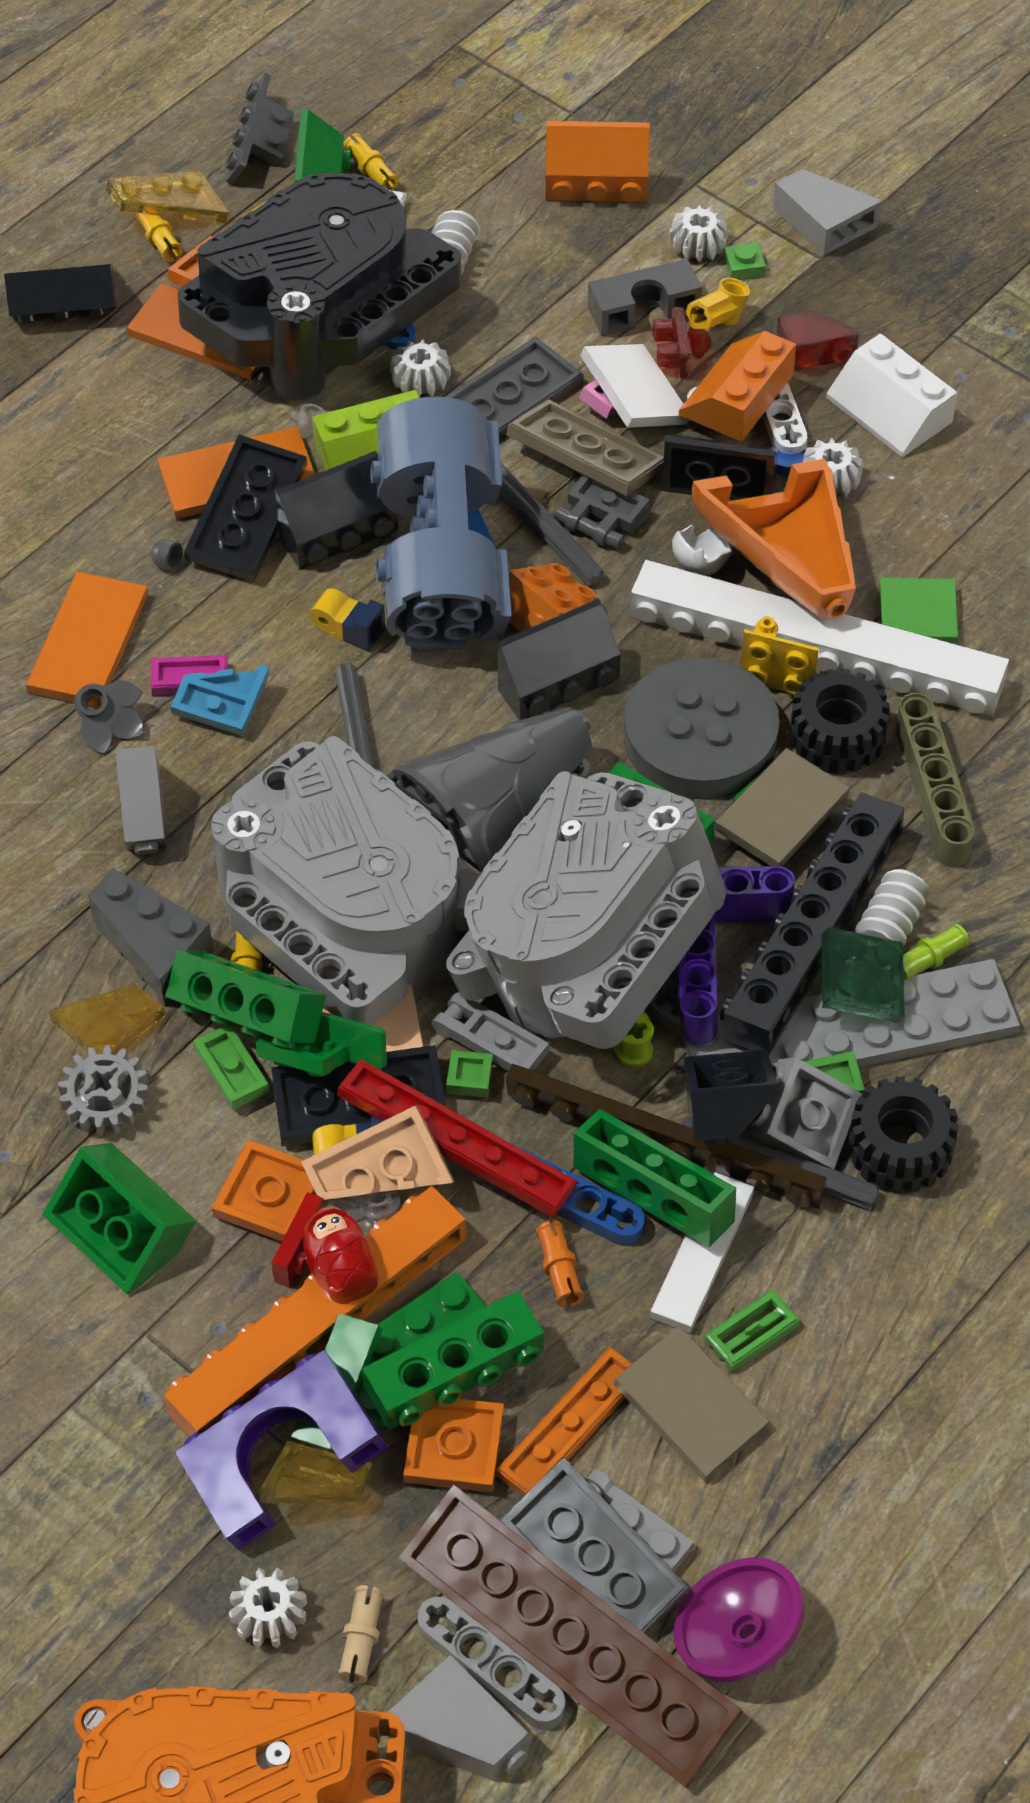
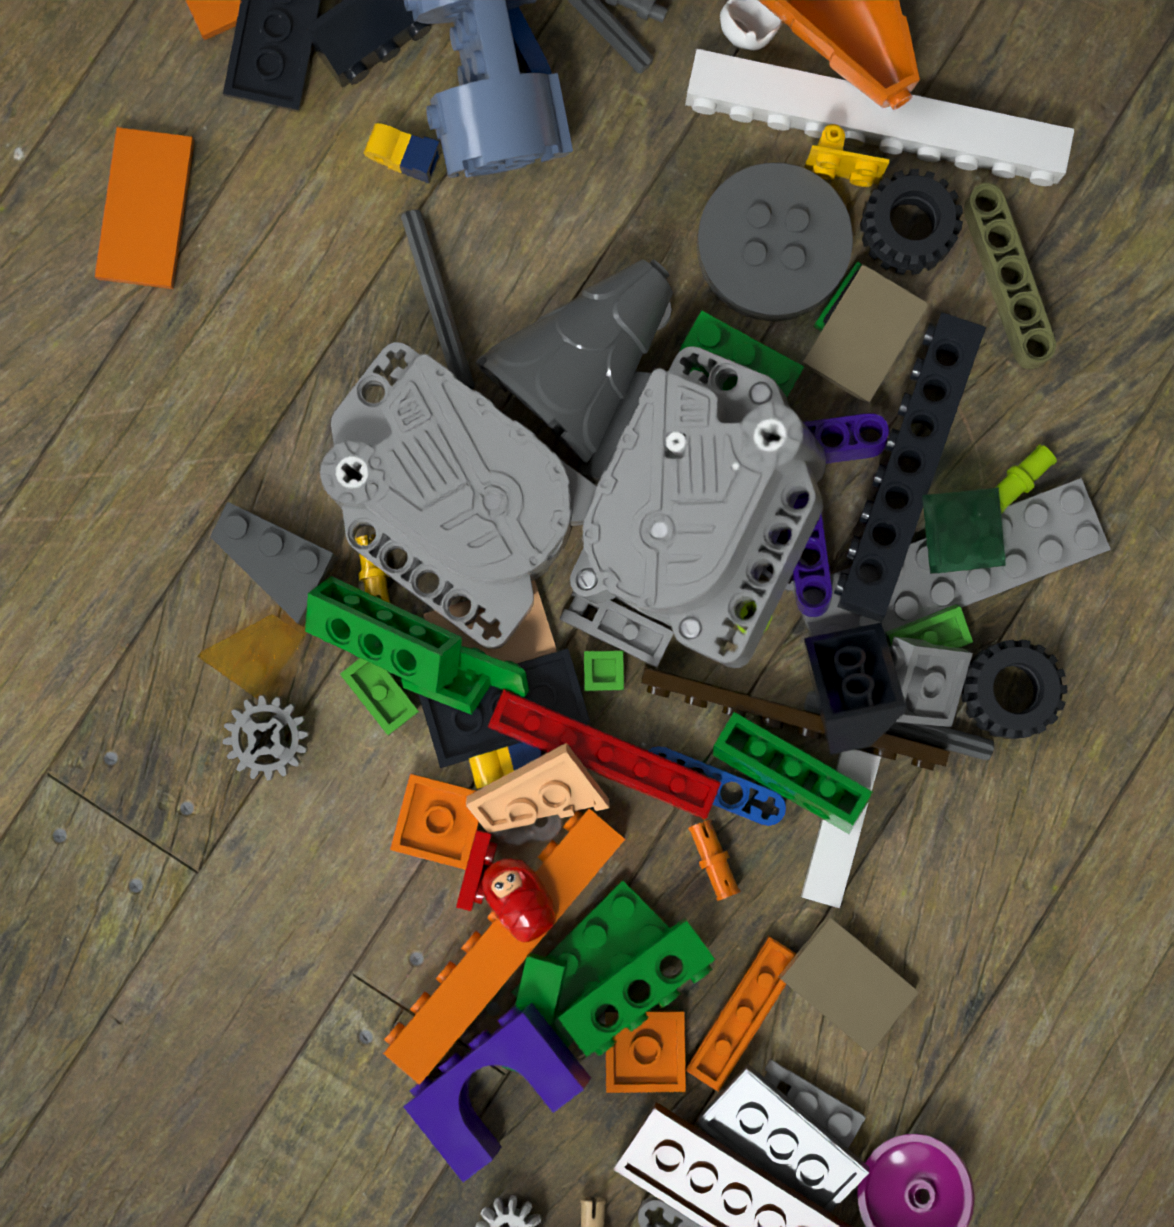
camera: 10 degrees left, 30 degrees up
(113, 717) = (190, 305): dark grey plate -> none
(118, 1216) = (306, 866): green slope -> none
(141, 799) = (238, 407): light grey slope -> none
(167, 554) = (204, 92): dark grey hinge -> none
(169, 671) = (255, 239): dark pink tile -> none
(221, 698) = (294, 270): dark azure wing -> none
(312, 1476) = (521, 1111): clear yellow wing -> none
(543, 594) = (603, 104): orange bracket -> none
(557, 660) = (625, 189): black slope -> none
(724, 1351) = (916, 876): bright green tile -> none
(894, 906) = (980, 444): white piece -> none
(920, 606) = (975, 64): bright green tile -> none

